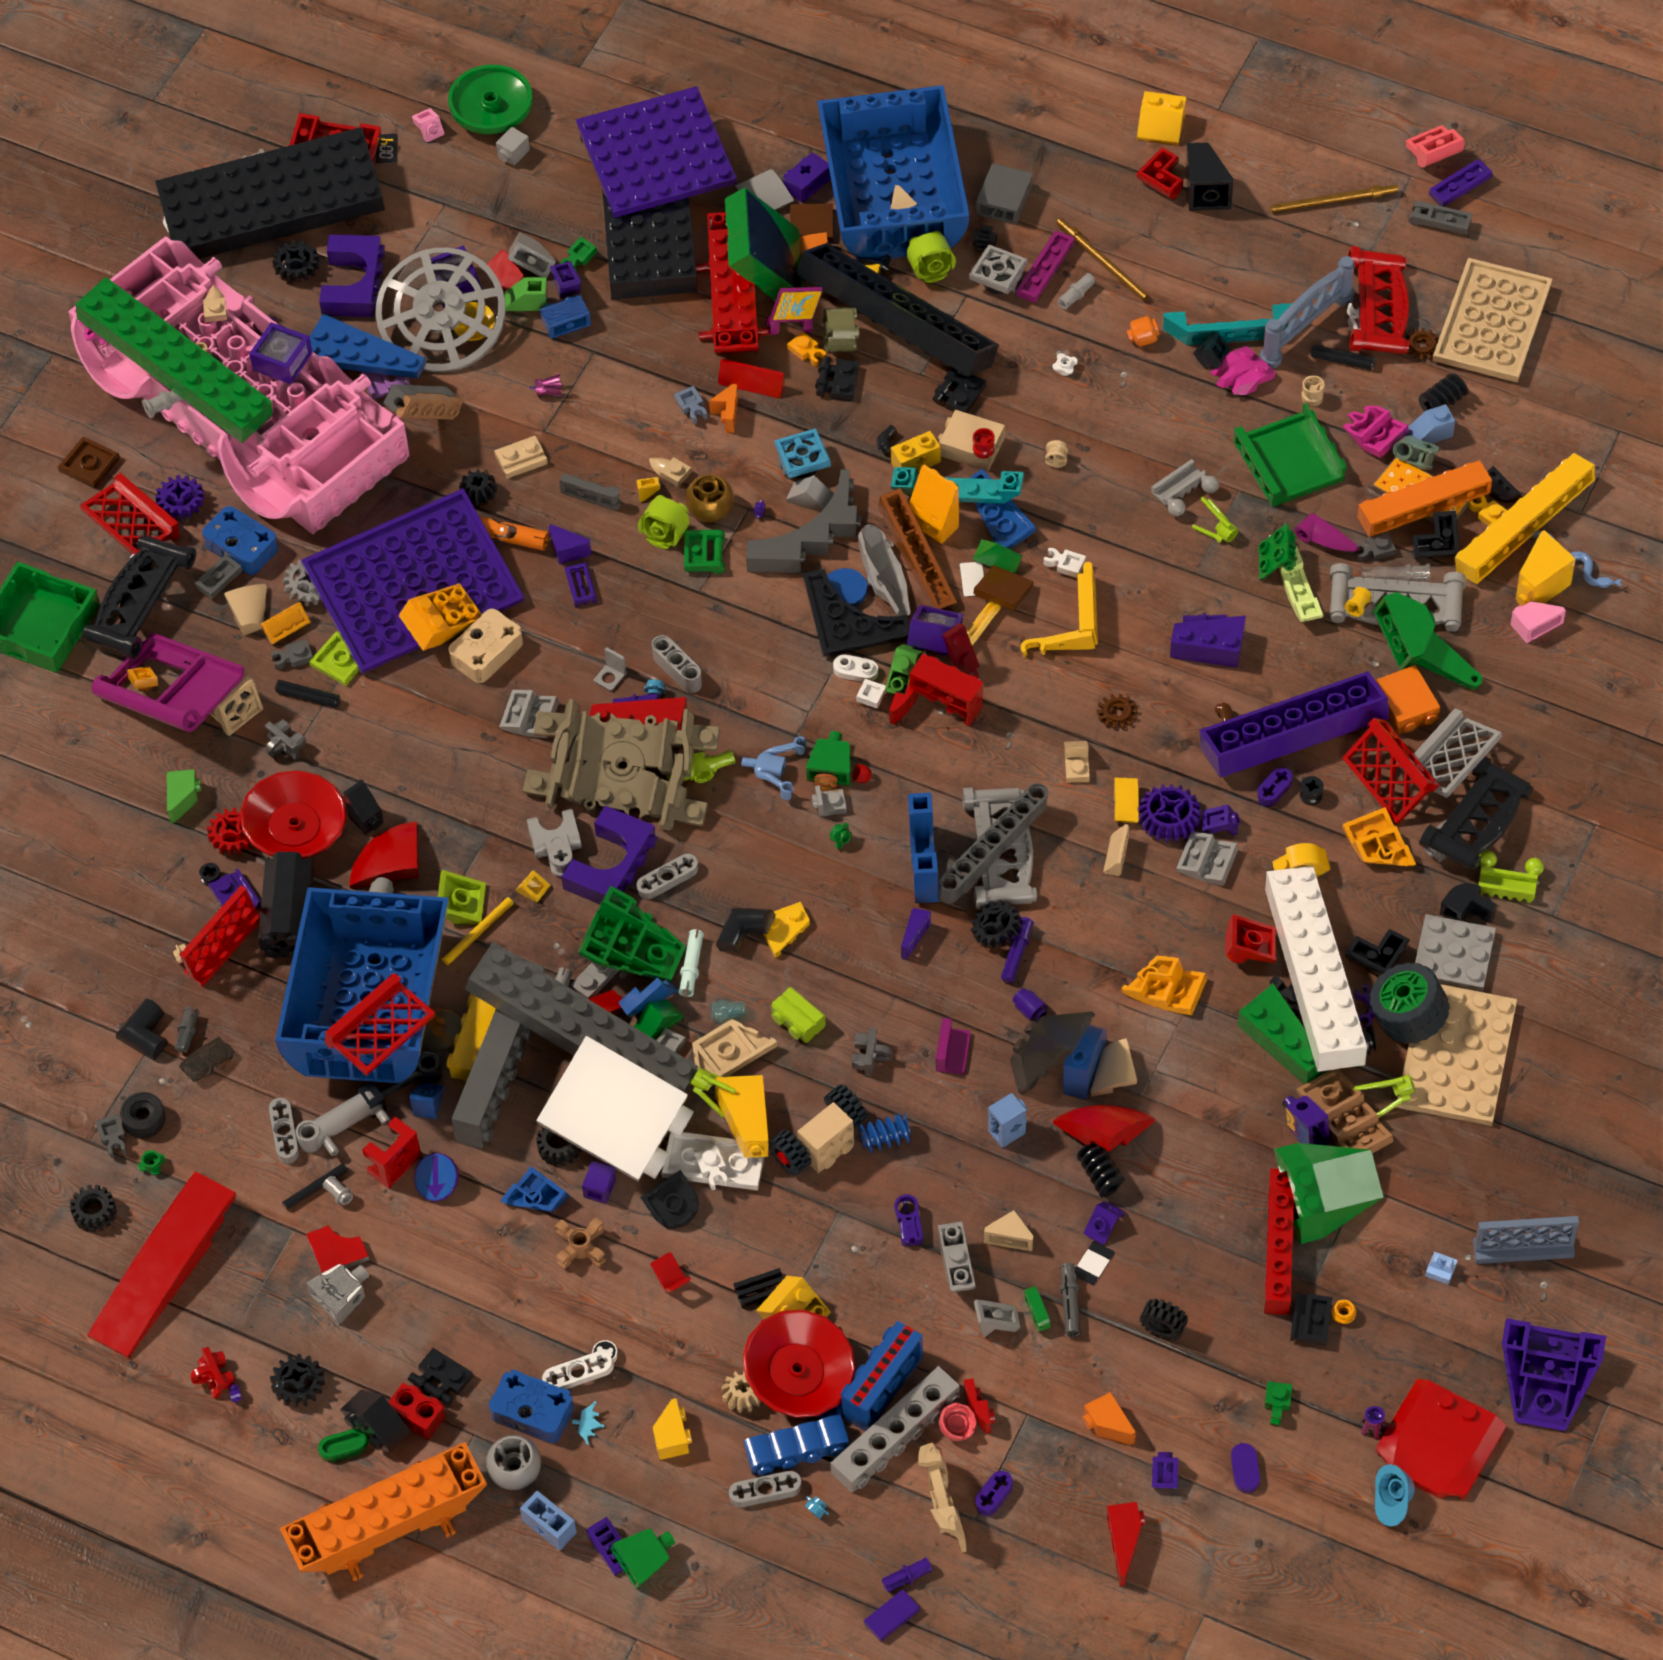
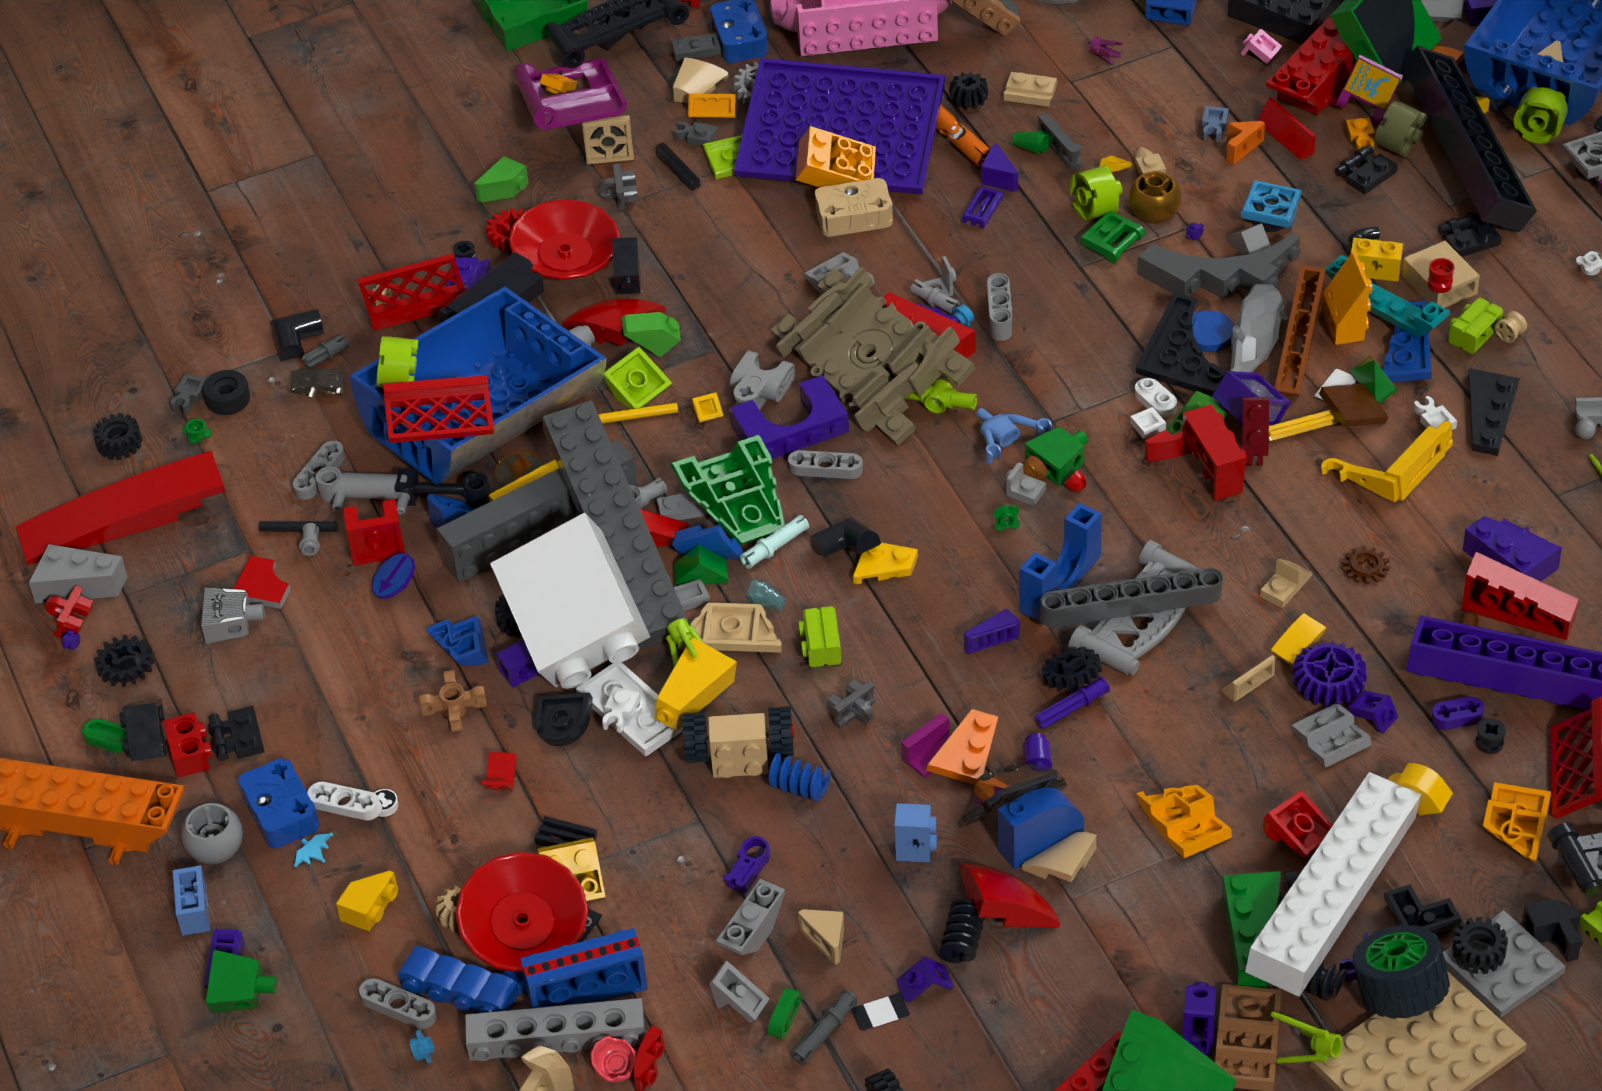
camera: 40 degrees right, 10 degrees down
(182, 1339) = (64, 567): none -> light grey wedge
(314, 1007) = (396, 360): none -> lime brick
(440, 850) = (652, 331): none -> bright green slope
(567, 504) = (1031, 141): none -> green cone
(619, 685) = (934, 296): none -> light grey pin
(666, 313) = (1261, 45): none -> bright pink bracket
(978, 1033) = (967, 749): none -> orange wing
(1031, 461) = (1474, 325): none -> lime brick
(1096, 530) = (1490, 408): none -> black wing
(1245, 674) = (1517, 599): none -> red wedge
(1438, 938) = (1476, 958): none -> black tyre

